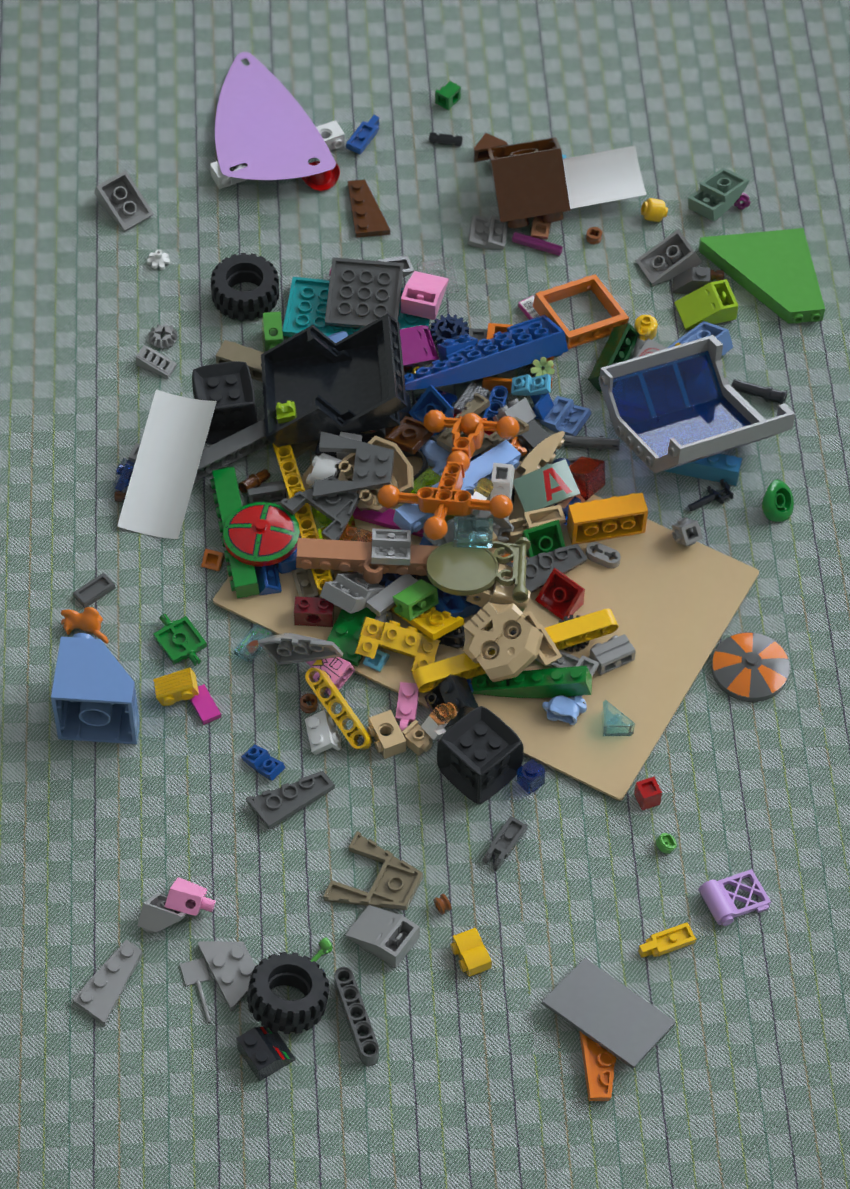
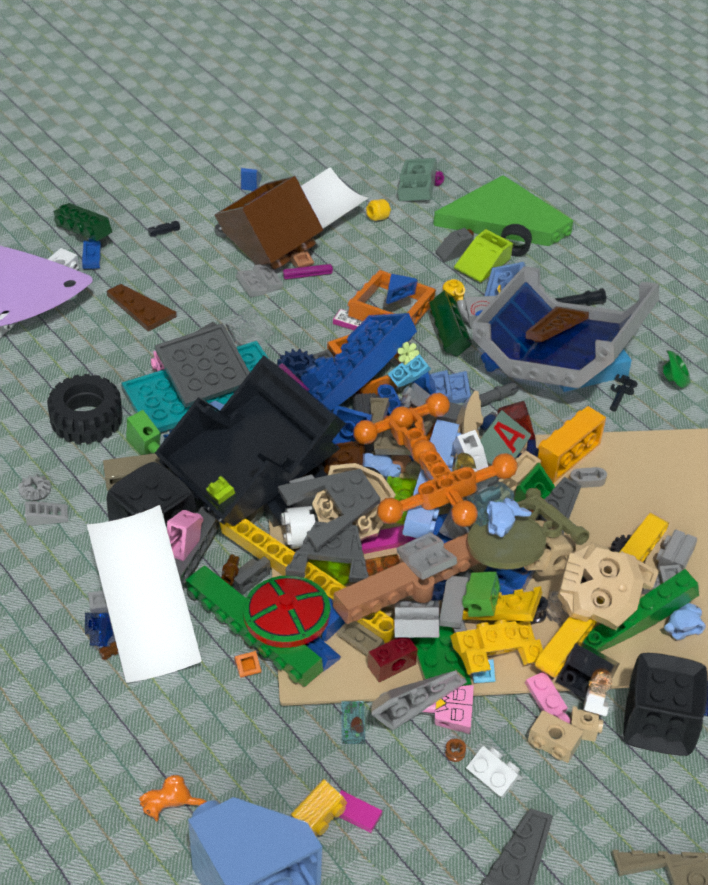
camera: 35 degrees left, 10 degrees down
(94, 590) = (150, 759): dark grey tile -> none
(180, 640) = (280, 759): green plate -> none
(227, 432) = (184, 533): none -> bright pink torso
(262, 762) = (464, 837): blue slope -> none
(323, 180) = (83, 299): red hat -> none
(346, 713) = (508, 739): yellow beam -> none
(373, 101) = (82, 221): none -> dark green brick
(423, 295) = (254, 343): bright pink slope -> none
(448, 95) = (139, 197): green brick -> none
(470, 545) = (502, 516): none -> light blue animal
(482, 146) = (207, 220): reddish brown slope -> none
(561, 595) = (595, 520): red slope -> none
(563, 121) = (250, 179): none -> blue slope
(588, 302) = (400, 287): none -> blue slope
(591, 233) = (347, 247): dark orange bush -> none
(668, 258) = (423, 236): light grey slope -> none
(686, 531) = (639, 423): light grey brick -> none
(700, 403) = (555, 322): none -> reddish brown wing
(758, 302) = (523, 232): none -> black tyre

